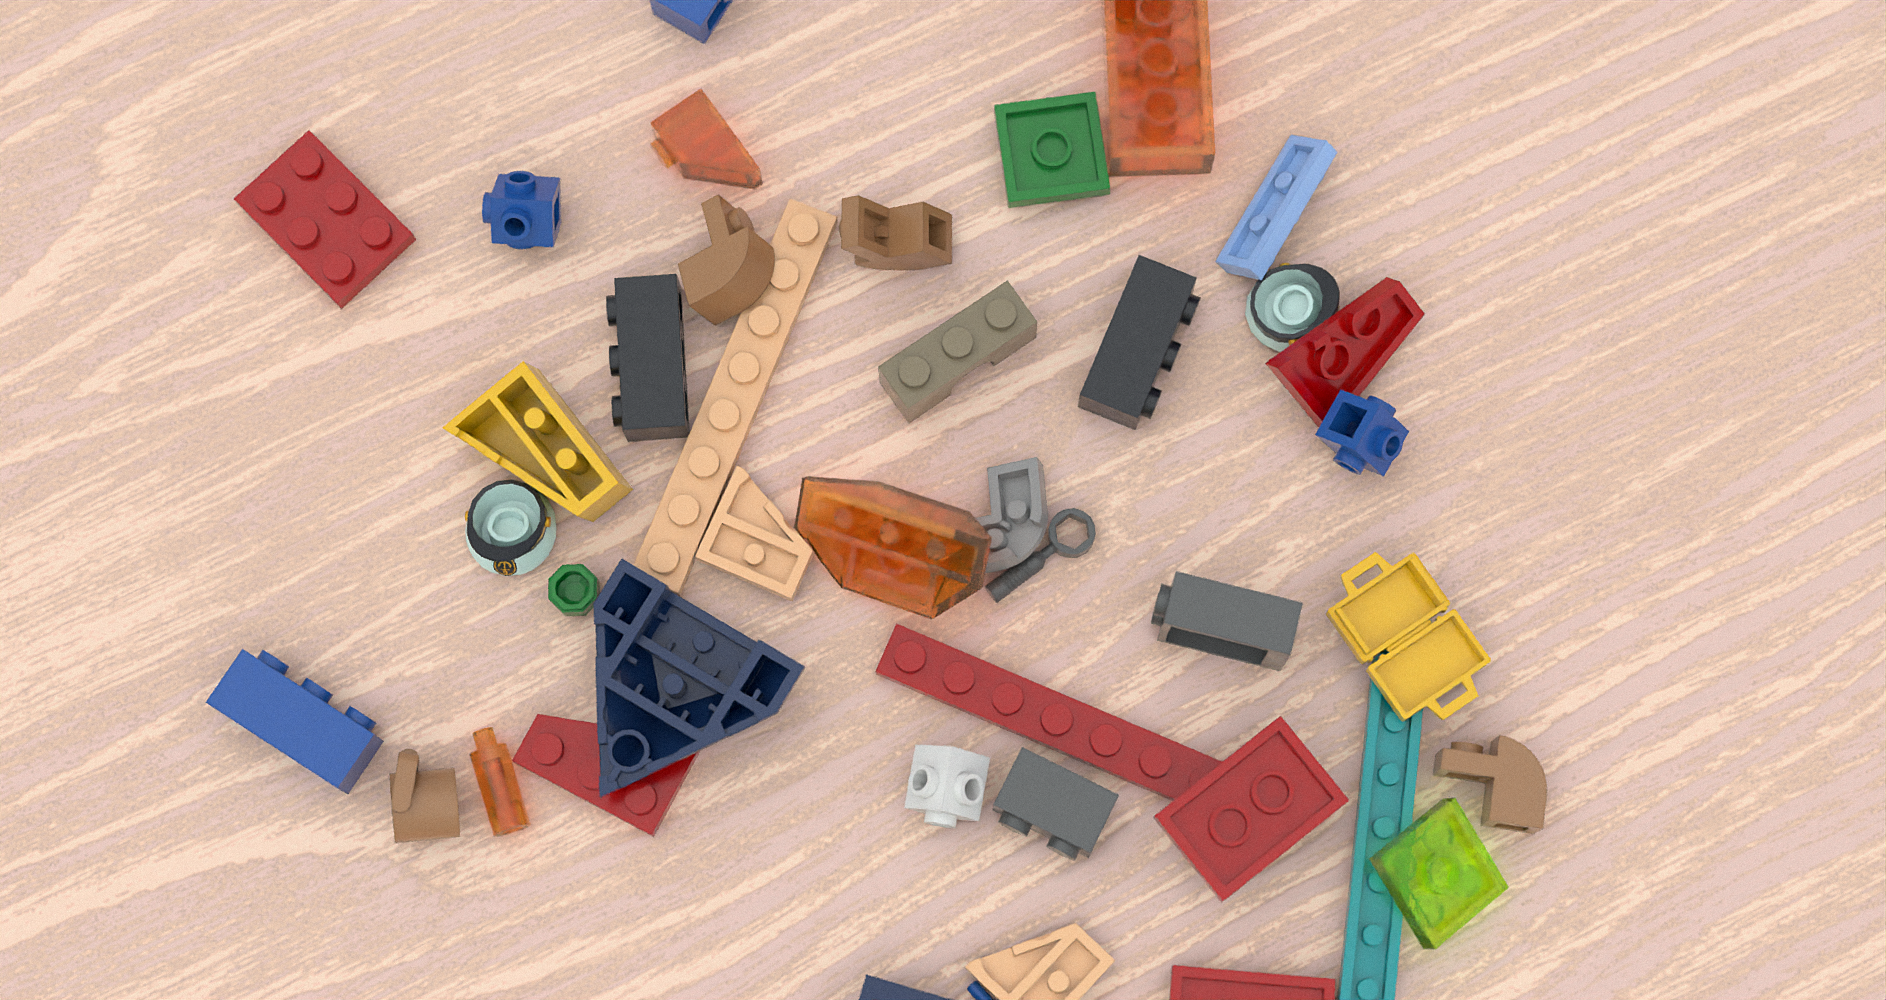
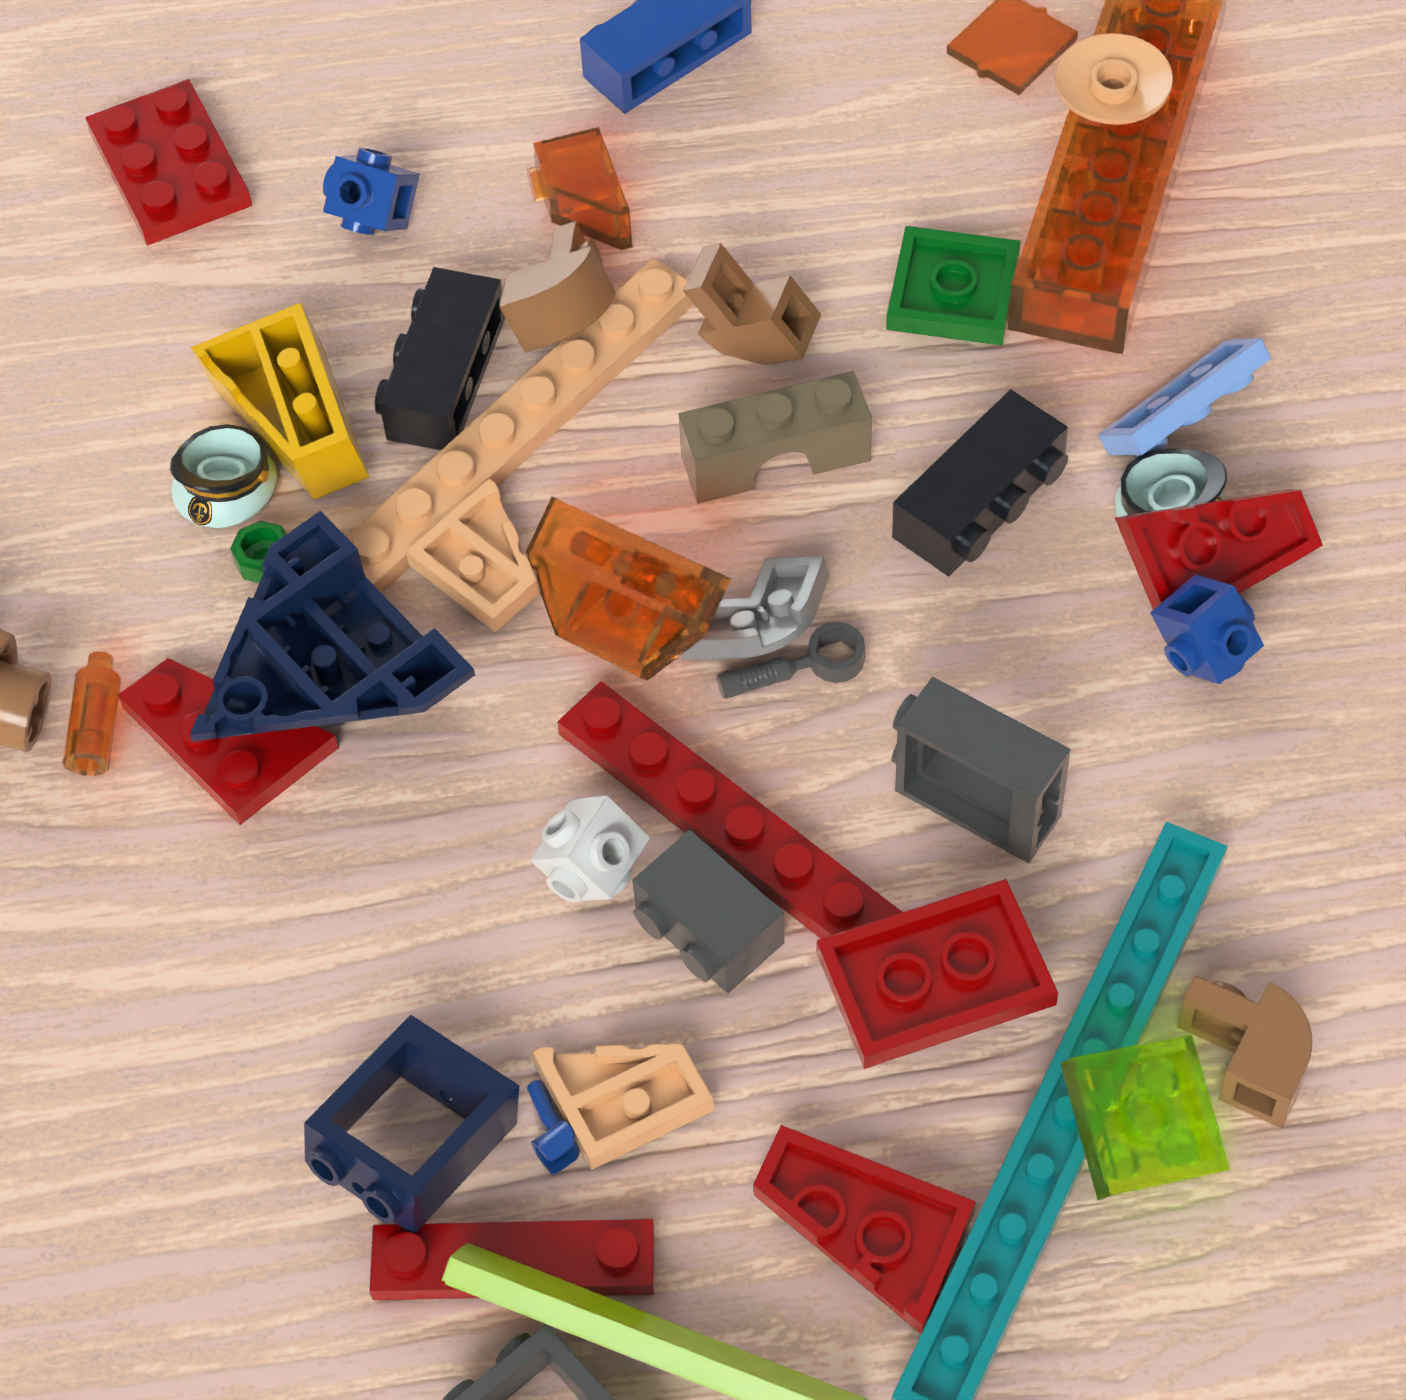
camera: 20 degrees right, 20 degrees down
(1396, 616) = (1191, 849): yellow piece -> none

